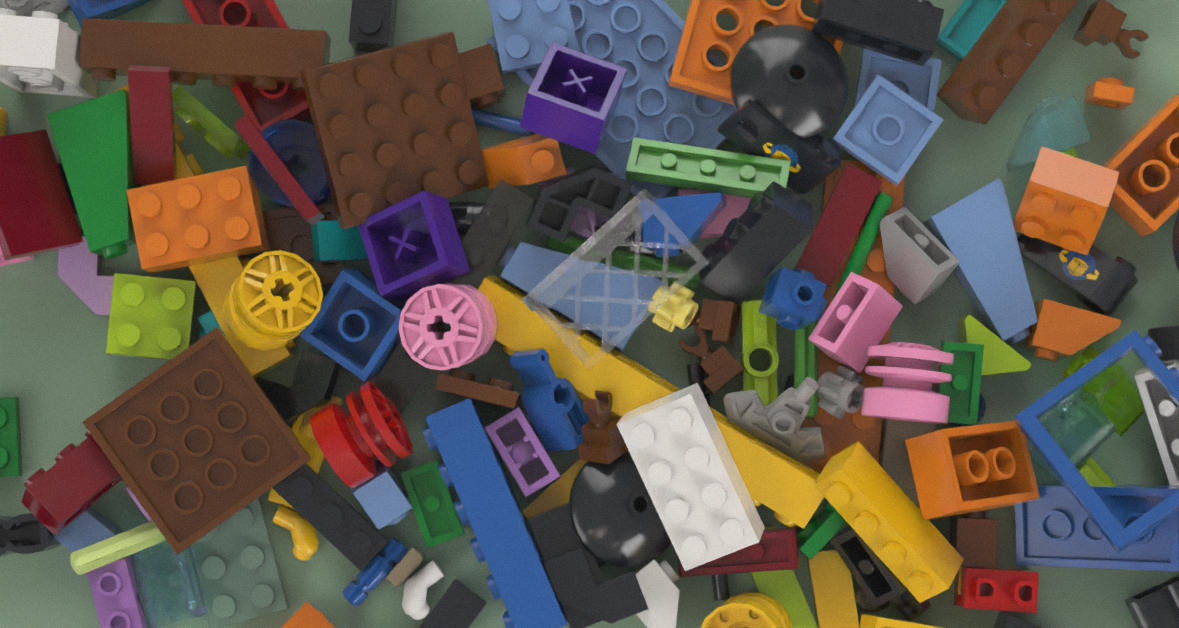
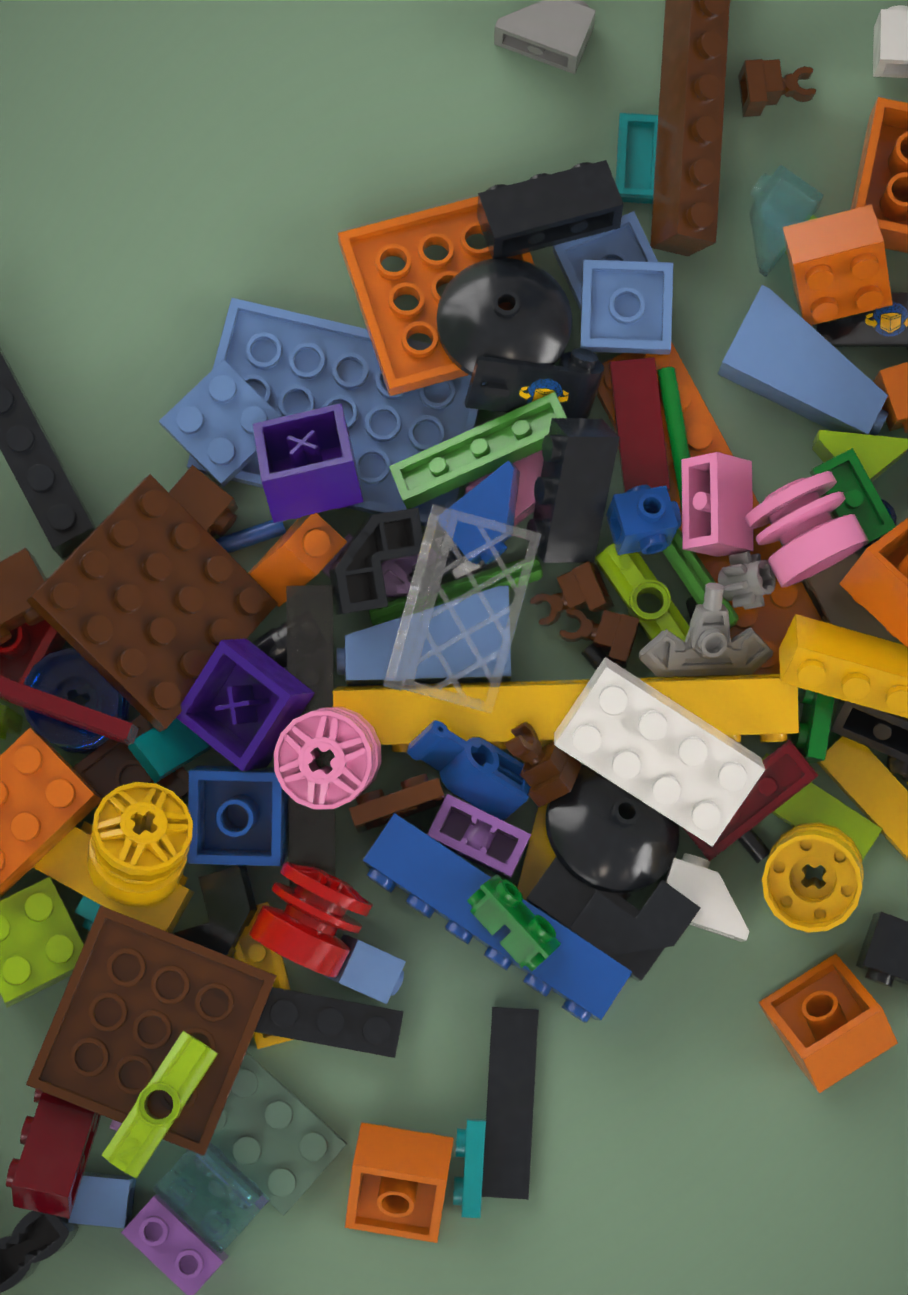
camera: 30 degrees left, 5 degrees down
(115, 548) = (138, 1191): yellowish green axle -> none
(144, 510) = (141, 1130): none -> lime piece
(302, 532) = (311, 1057): yellow arm -> none
(375, 571) = (409, 1051): blue axle -> none
(406, 566) = (436, 1024): dark tan tile -> none
(415, 590) = (461, 1042): white arm -> none
(432, 504) = (422, 946): green plate -> none
(509, 552) = (531, 935): none -> green hinge
(676, 311) = (538, 605): light yellow gear -> none
(914, 256) = (731, 409): light grey slope -> none
(1109, 93) = (812, 144): orange plate -> none

